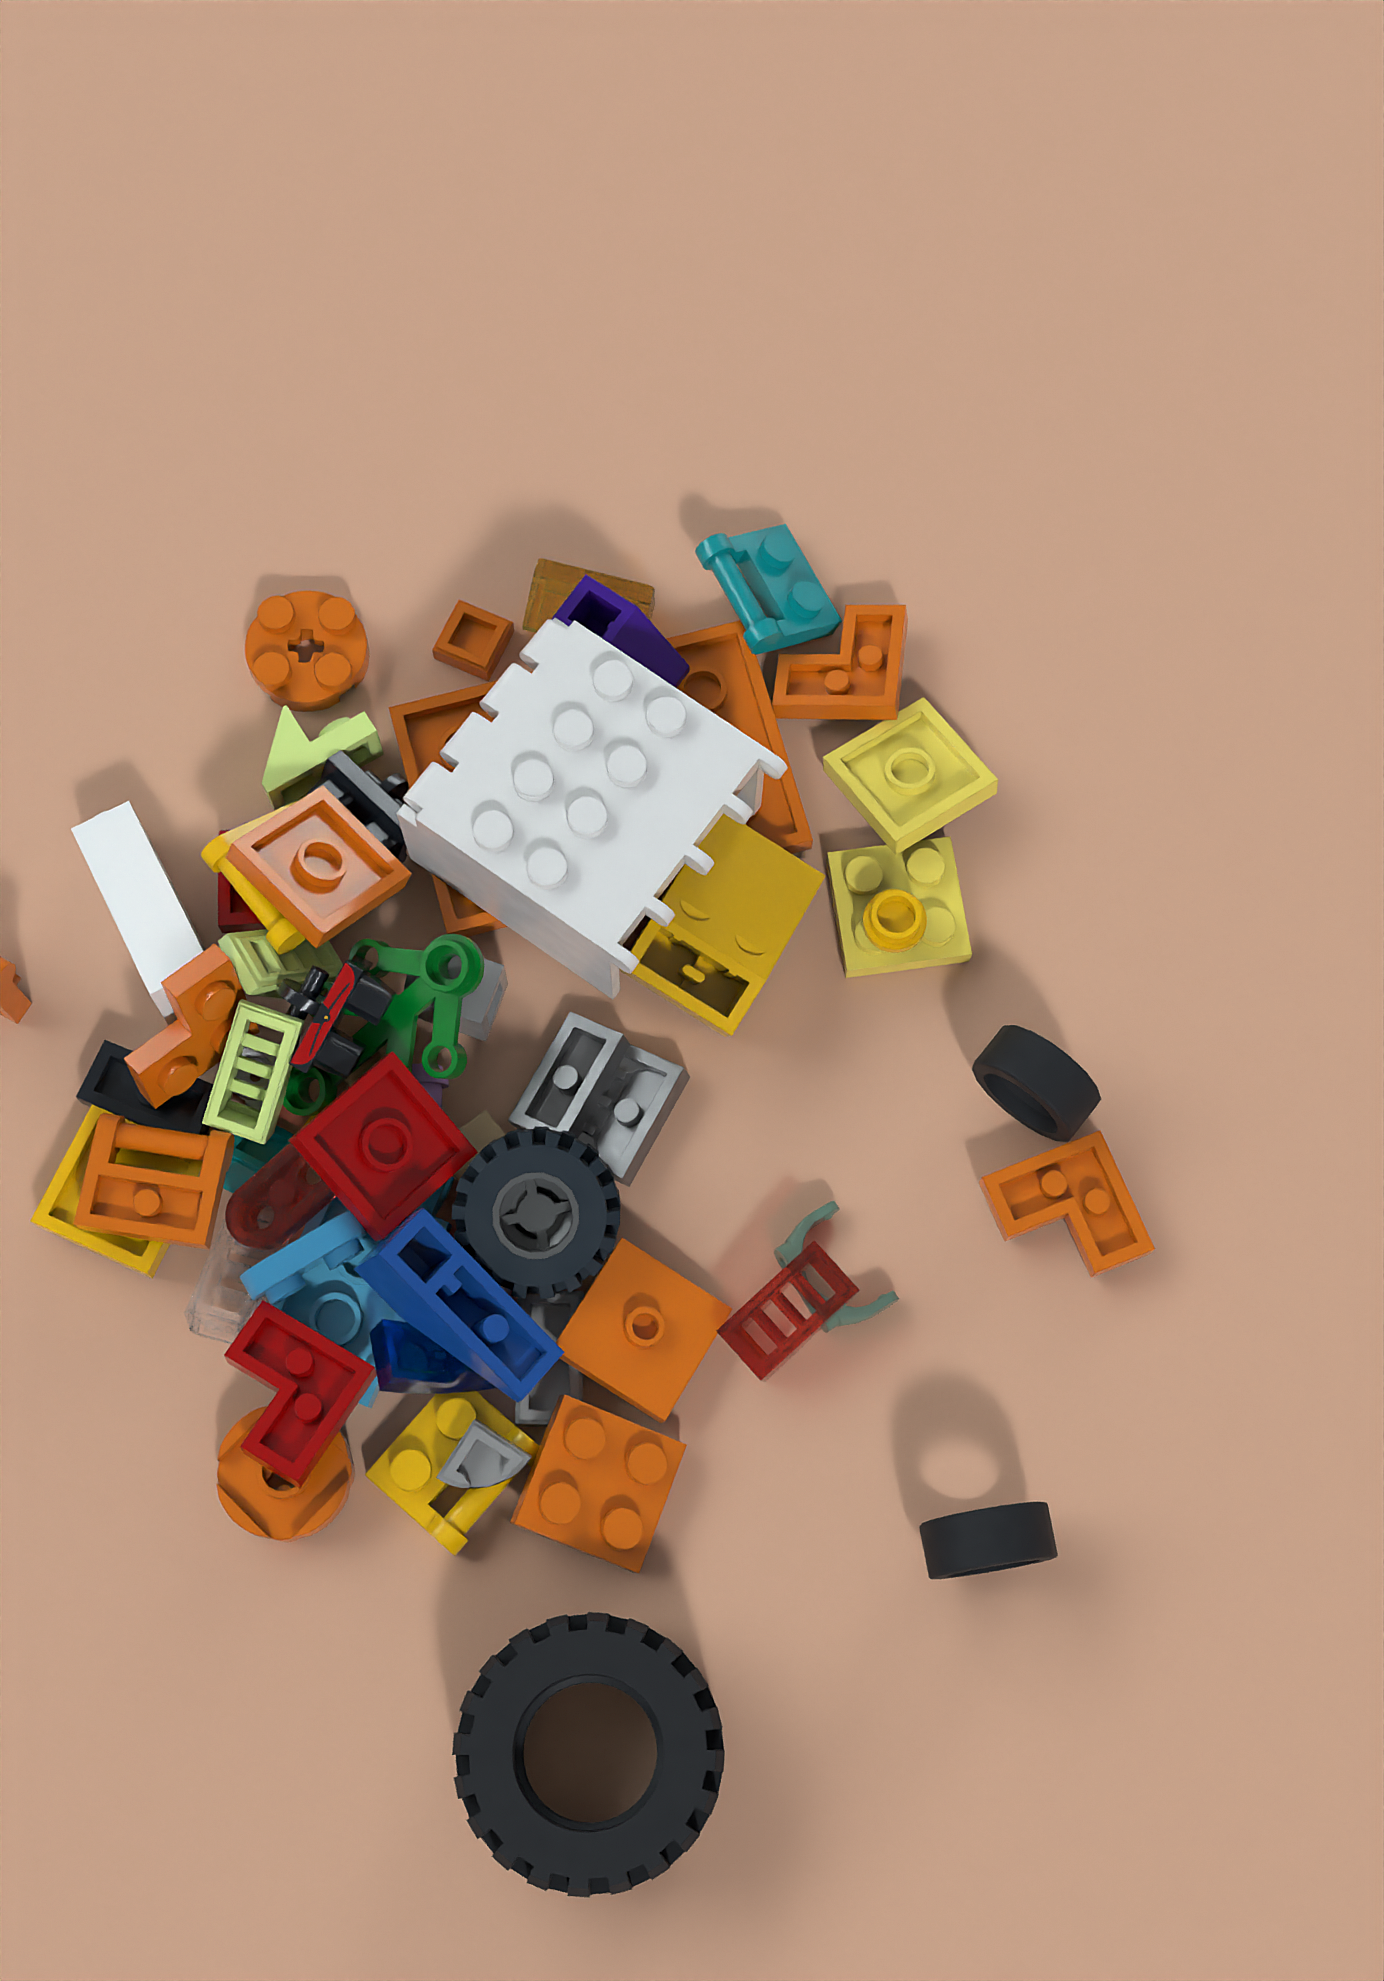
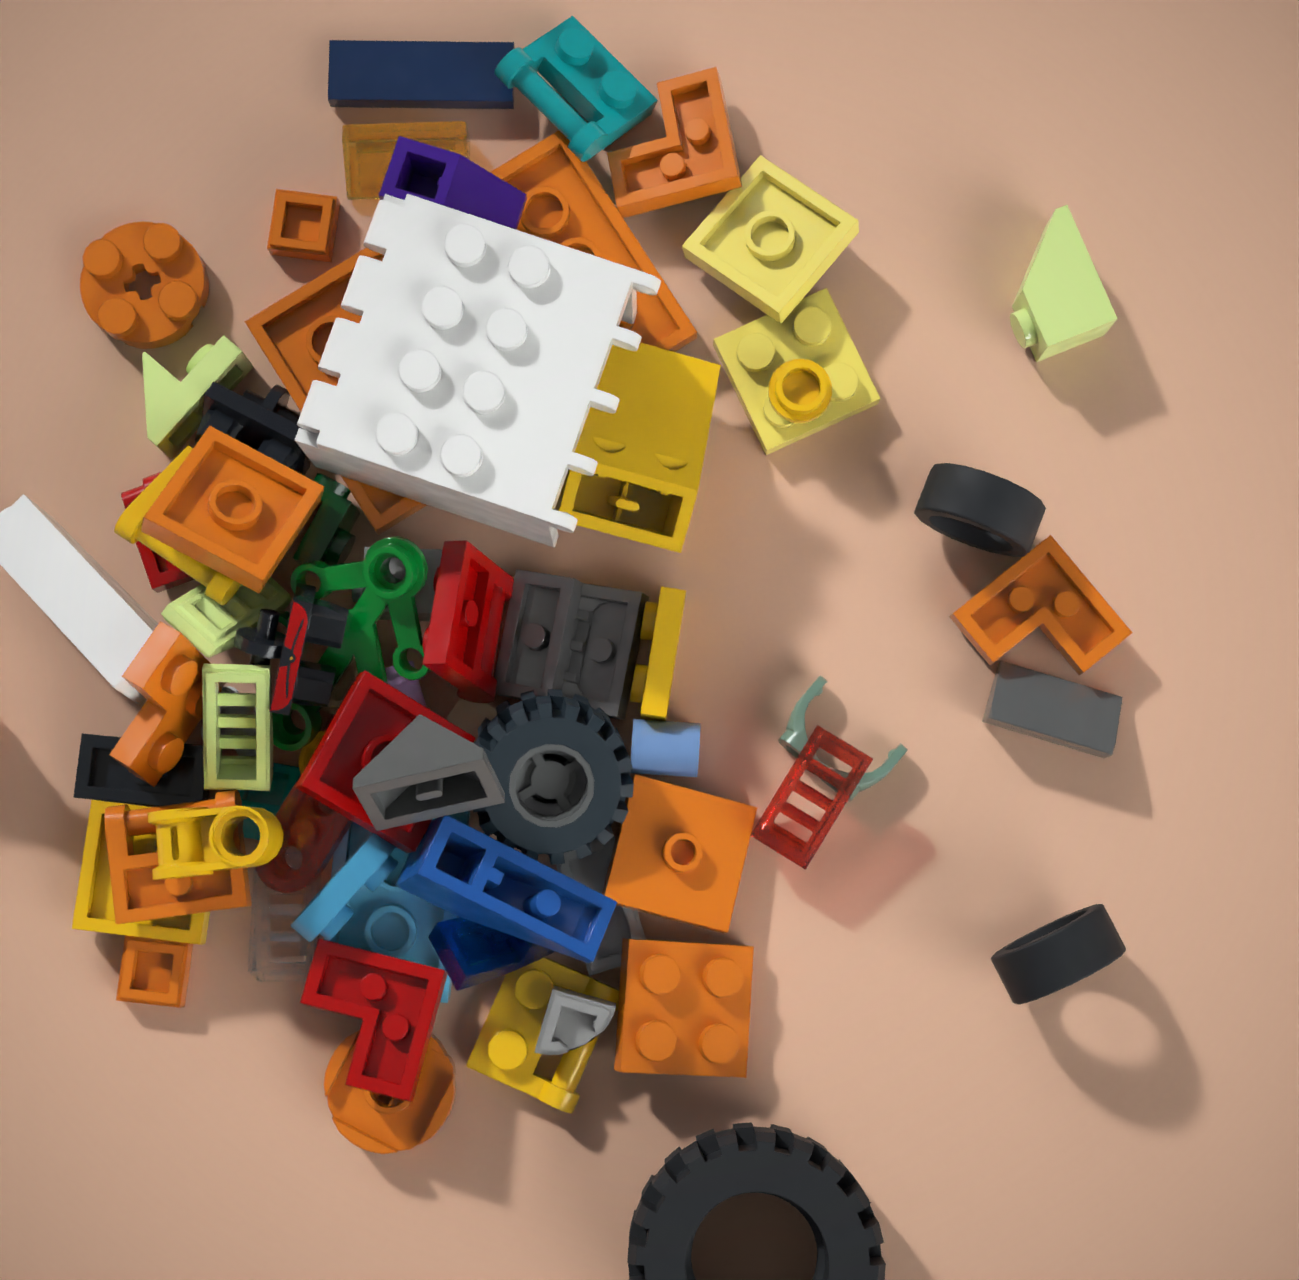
camera: 15 degrees left, 10 degrees up
(94, 1290) = (154, 972): none -> orange tile
(181, 1168) = (202, 840): none -> yellow piece
(407, 917) = (329, 532): none -> dark green bracket
(416, 1165) = (426, 777): none -> dark grey slope
(506, 1039) = (466, 620): none -> red plate
(623, 536) = (417, 74): none -> dark blue tile
(660, 1223) = (665, 748): none -> medium blue piece
(670, 1155) = (662, 626): none -> yellow plate
(1055, 1304) = (1053, 710): none -> dark grey slope
(1175, 907) = (1060, 294): none -> yellowish green slope

